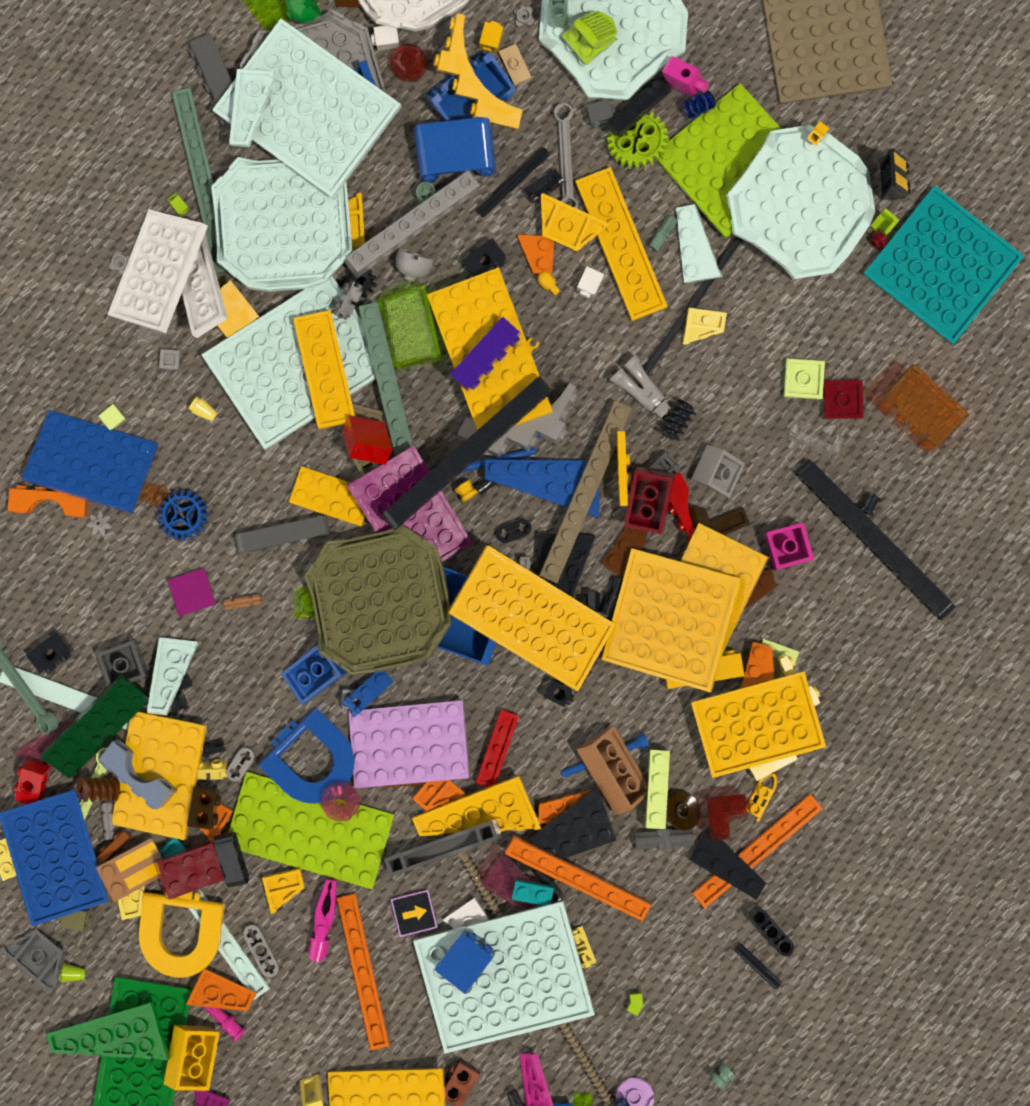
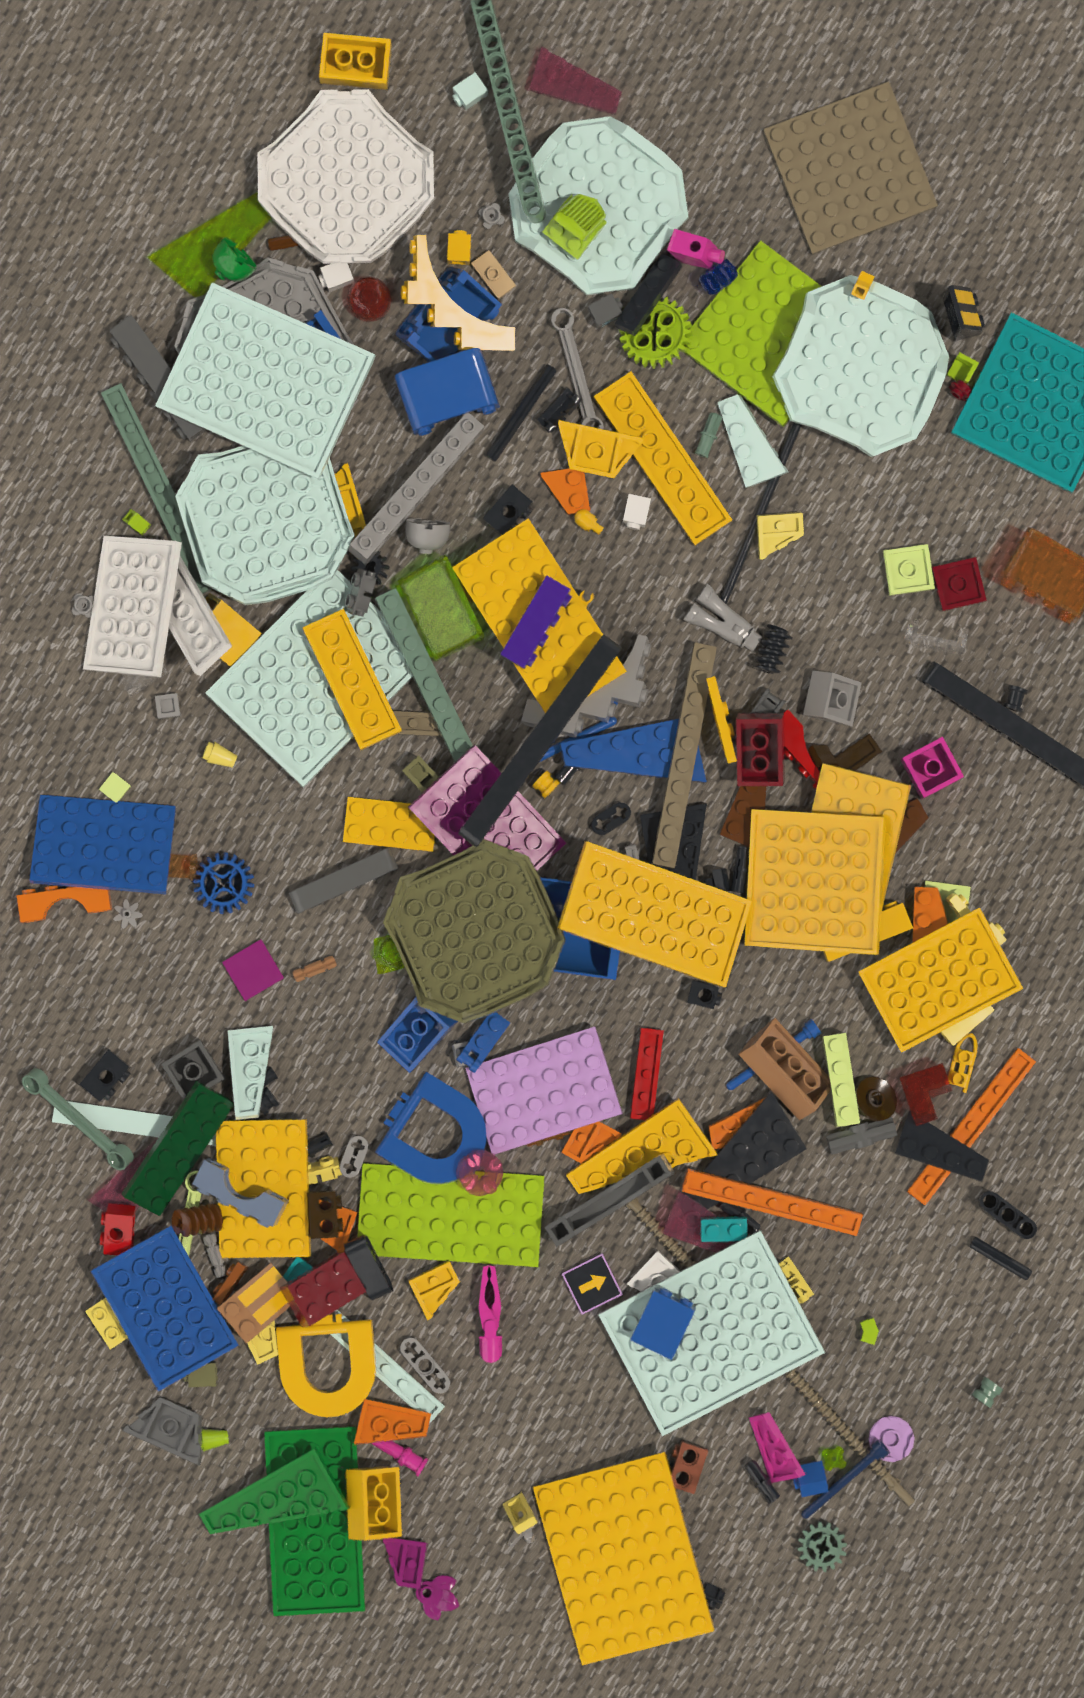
camera: 15 degrees left, 0 degrees up
(249, 101) = (198, 386): light aqua wing -> none
(363, 971) = (548, 1363): orange tile -> none
(367, 440) = (420, 750): red brick -> none
(423, 191) = (420, 445): sand green wheel -> none

